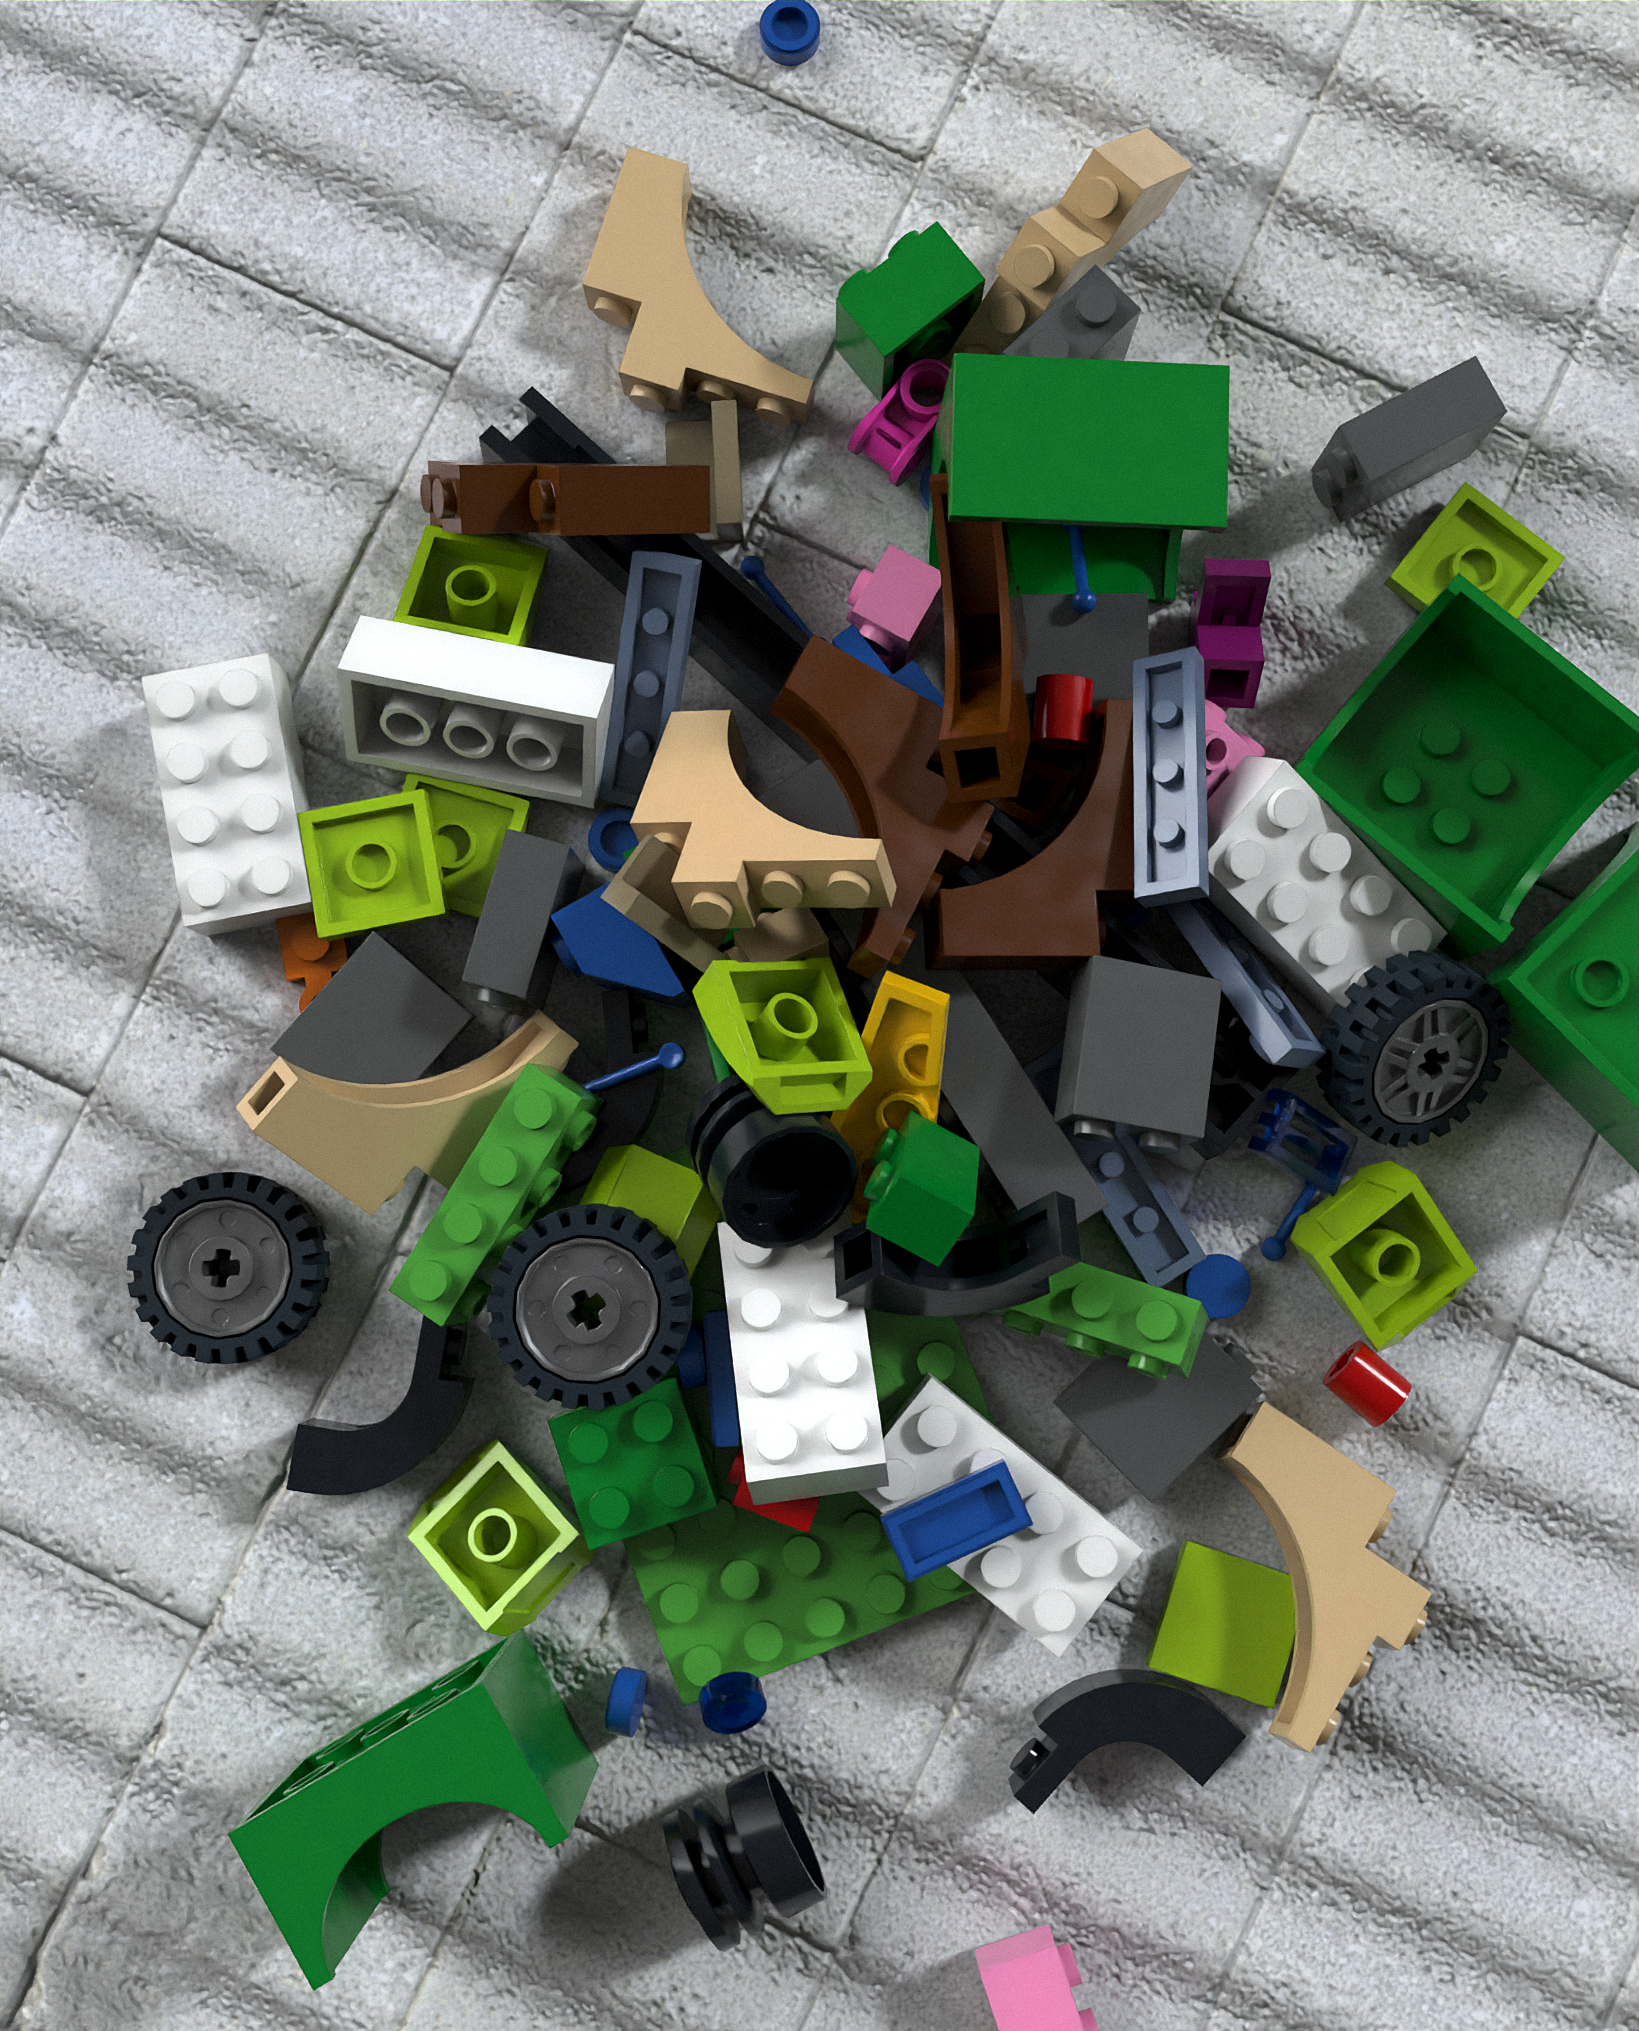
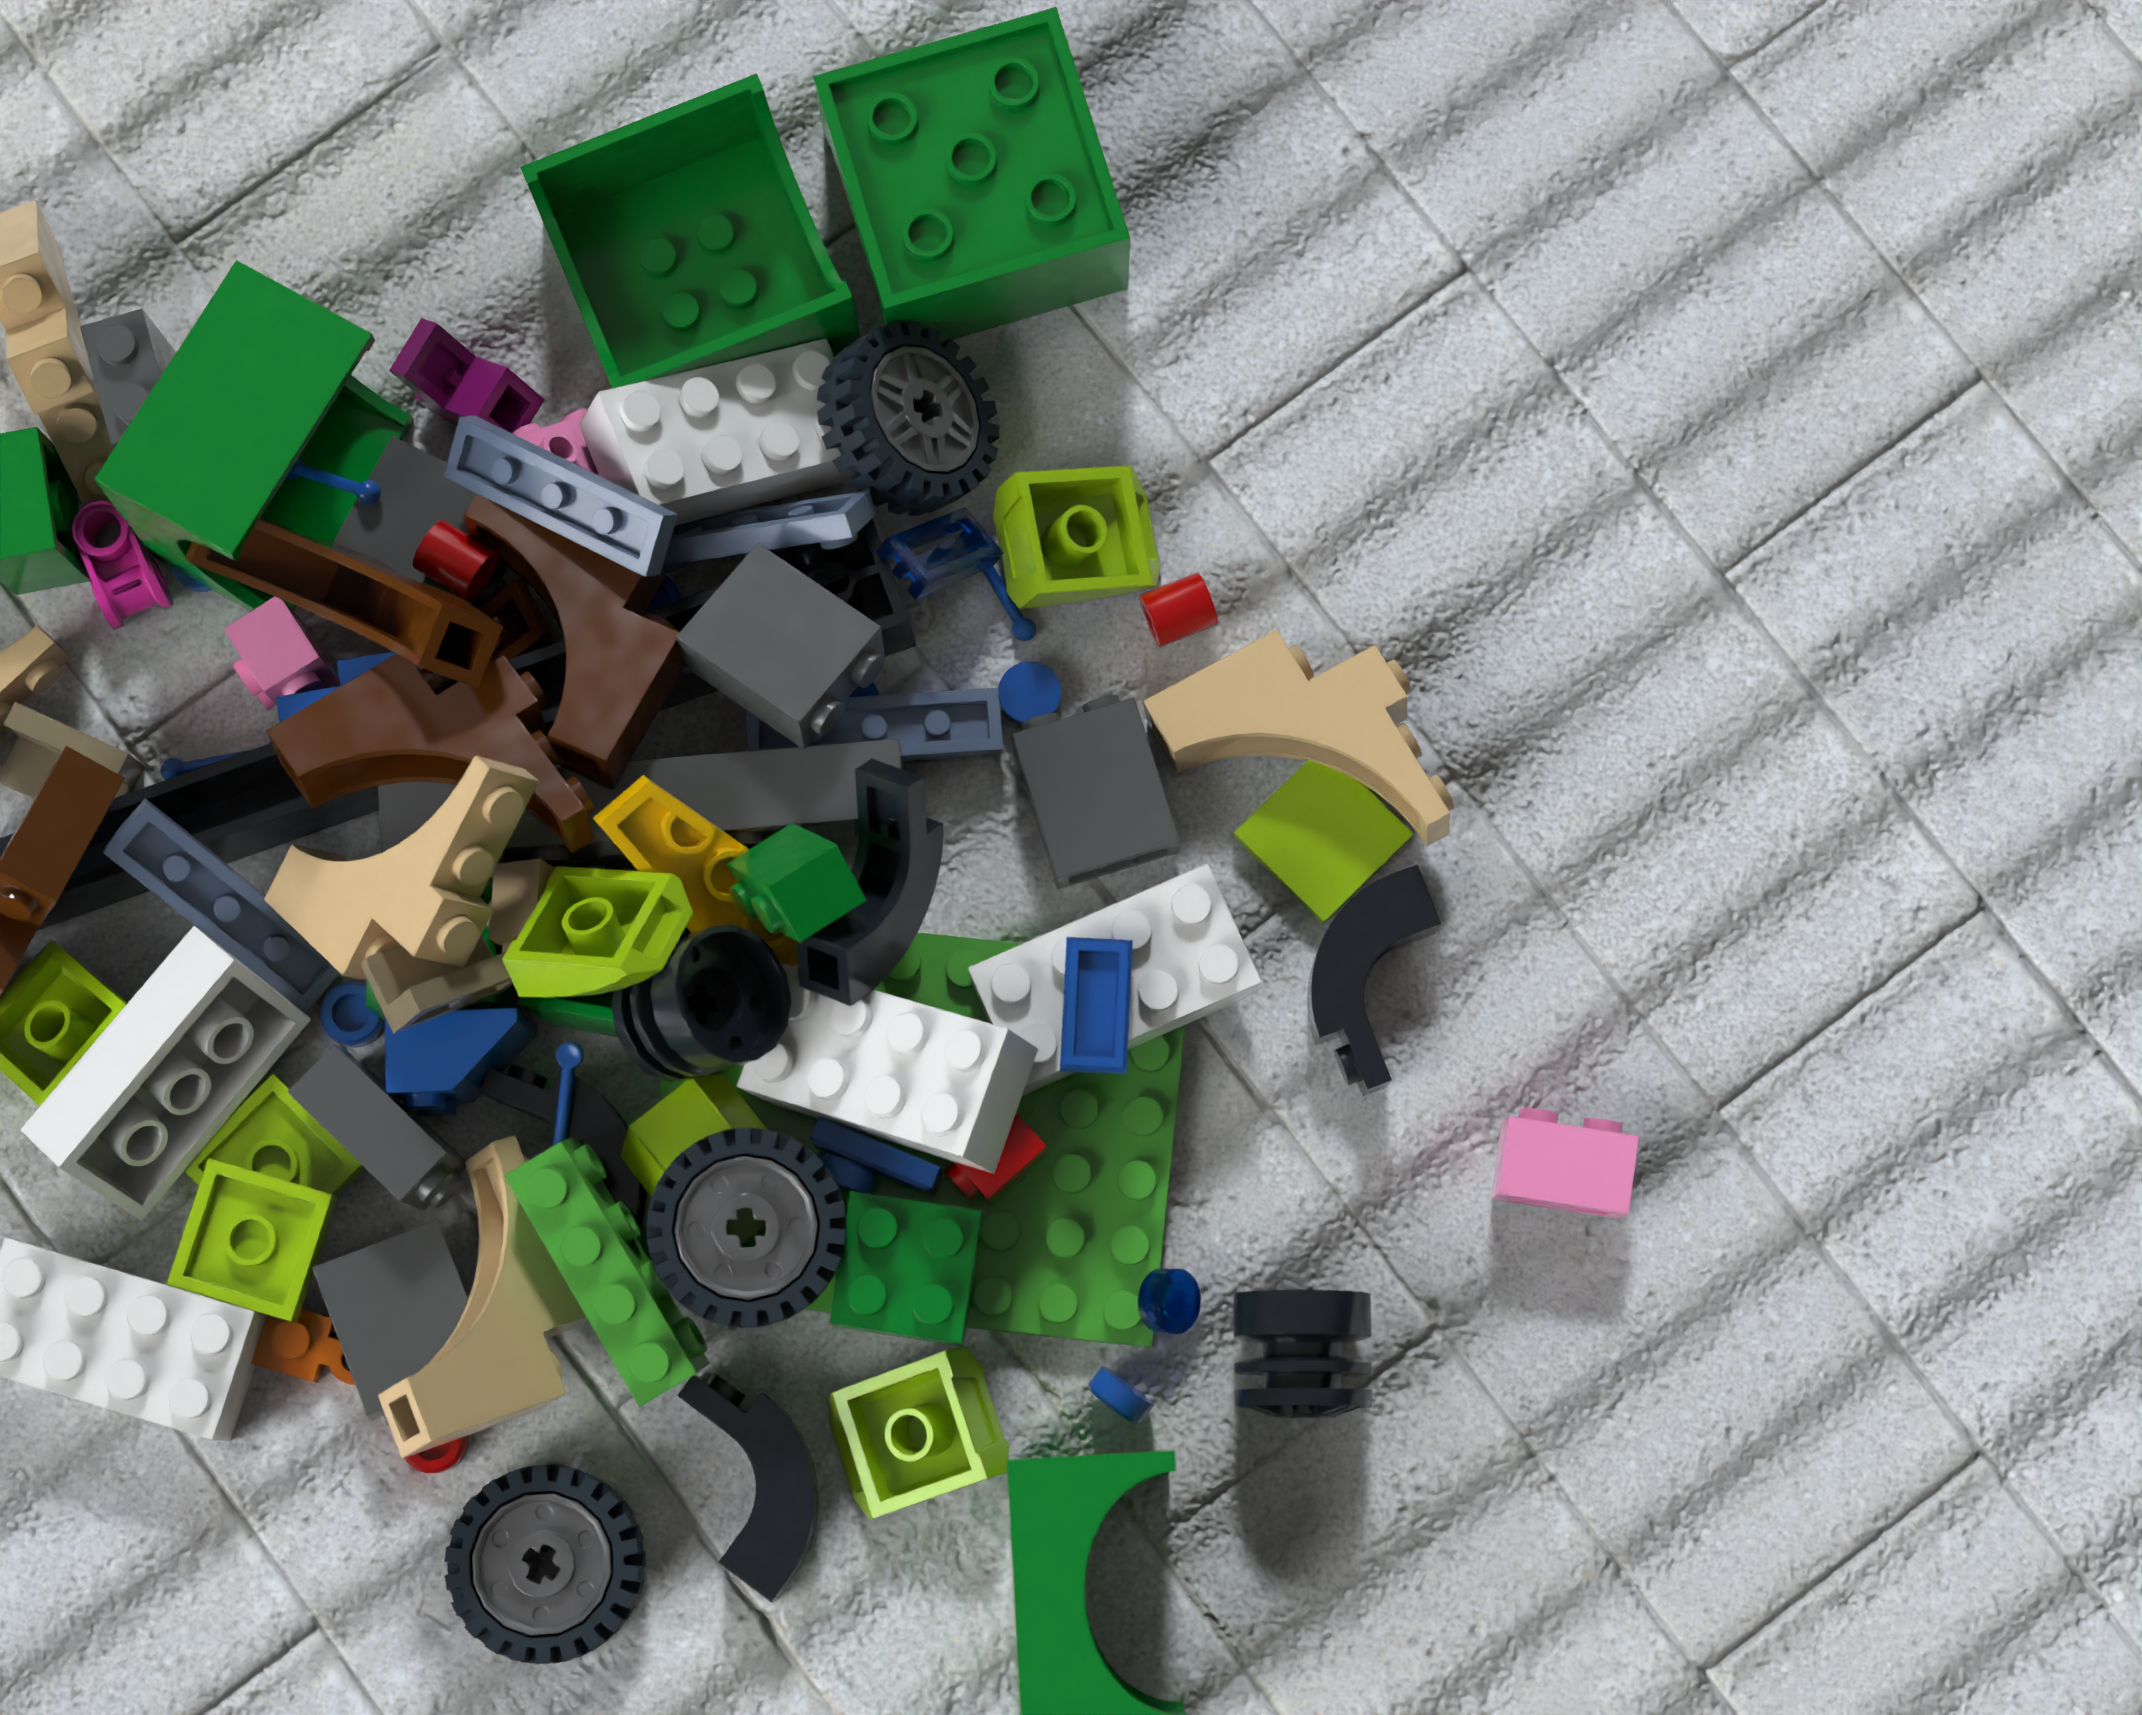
camera: 65 degrees left, 5 degrees down
(1115, 1316) = (995, 793): bright green brick -> none
(1406, 439) = (383, 149): dark grey brick -> none
(1484, 547) = (513, 133): lime plate -> none

